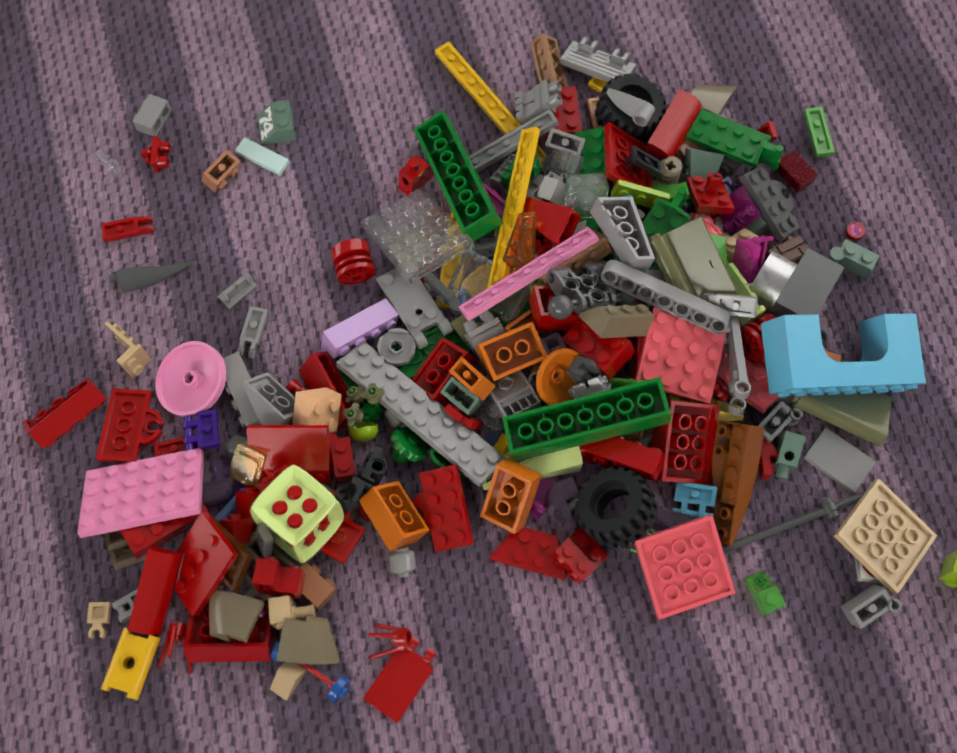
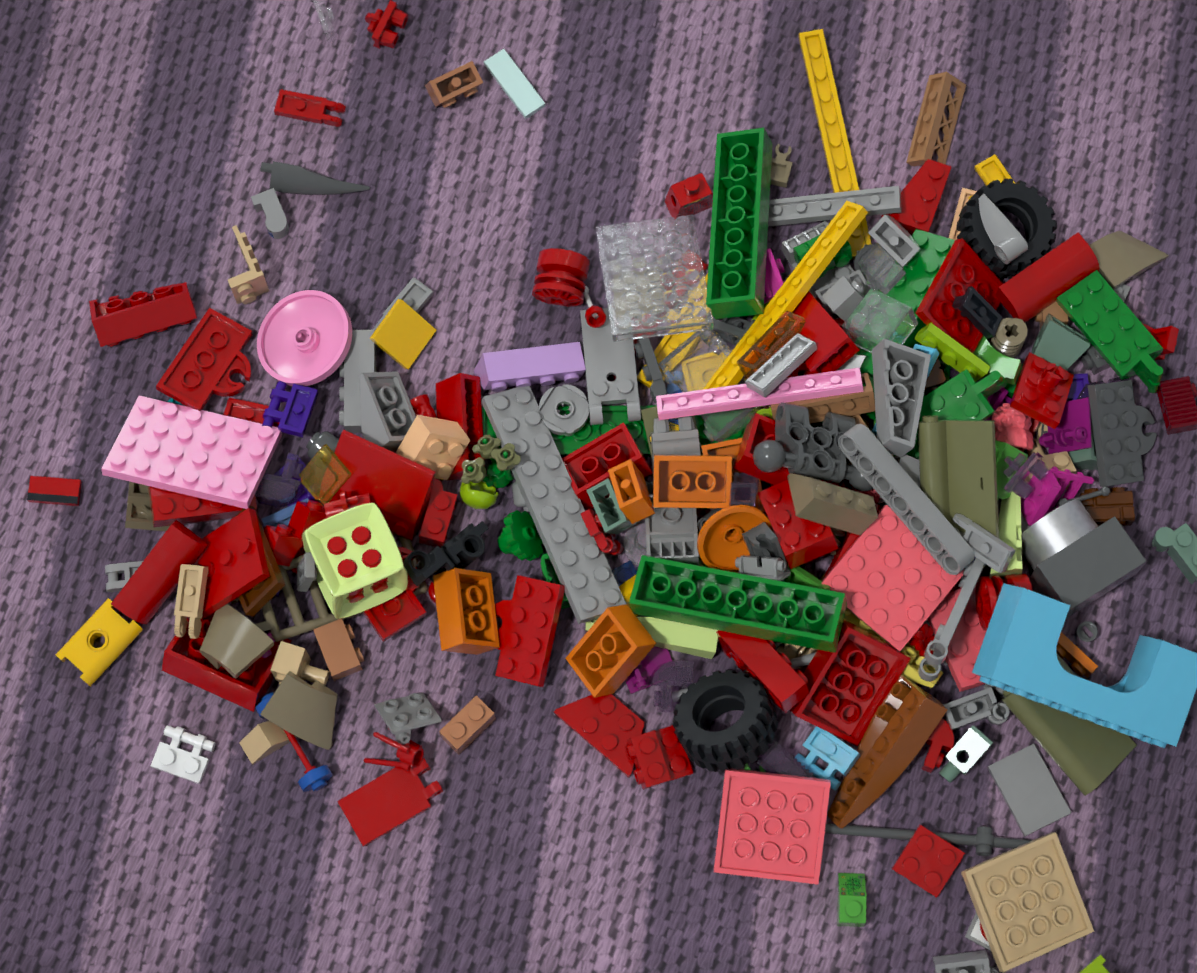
camera: 25 degrees right, 5 degrees up
(50, 567) = (54, 490): none -> red tile
(98, 615) = (85, 571): tan plate -> none
(135, 309) = (275, 218): none -> light grey leg
(176, 633) = (161, 632): red plant -> none
(186, 599) = (190, 599): none -> tan hinge
(230, 725) = (181, 762): none -> white plate
(237, 290) = (407, 249): light grey hinge -> none
(260, 346) = (403, 334): none -> yellow tile
(276, 123) = (551, 48): sand green slope -> none
(276, 580) = (298, 624): red brick -> none
(385, 274) = (593, 311): none -> red hinge
(385, 609) = (407, 714): none -> light grey hinge
(402, 561) = (451, 669): light grey head -> none
(432, 596) = (467, 725): none -> nougat brick
(465, 134) = (781, 167): none -> dark tan plate
(534, 247) = (781, 365): none -> light grey plate
(537, 100) = (891, 166): light grey hips -> none
(599, 65) = (1001, 146): light grey hinge -> none
(736, 239) = (1018, 483): none -> clear purple hips
(783, 241) = (1105, 491): none -> dark grey hinge
(801, 540) = (928, 860): none -> red plate

